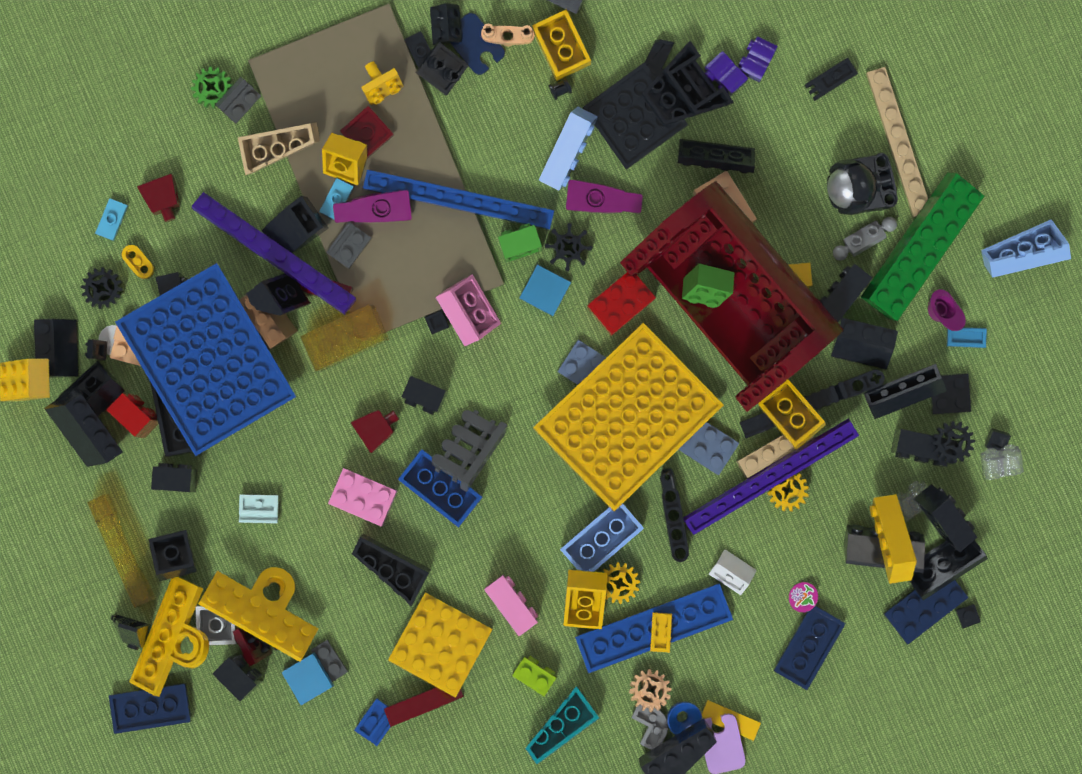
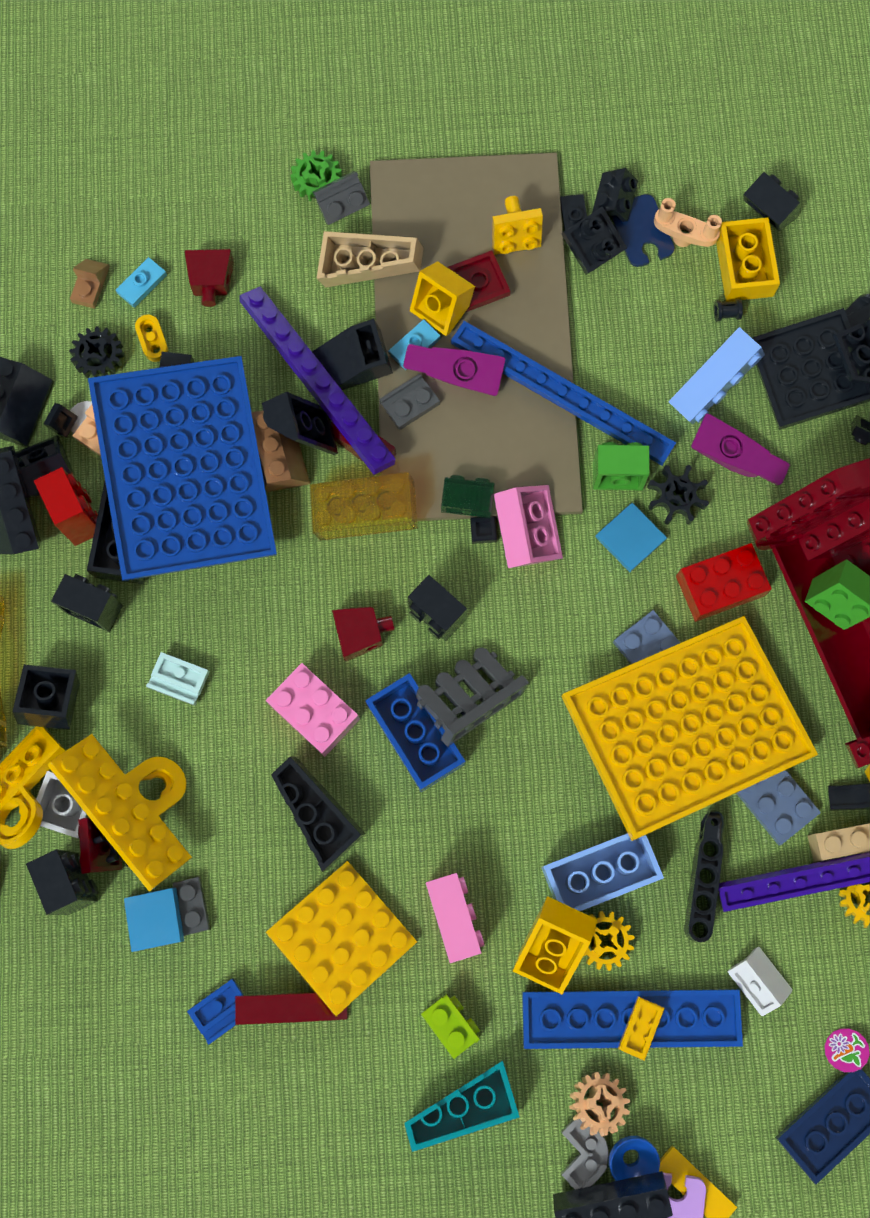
camera: 20 degrees right, 10 degrees down
(72, 233) = (89, 282): none -> medium nougat slope
(417, 304) = (467, 496): none -> clear green brick

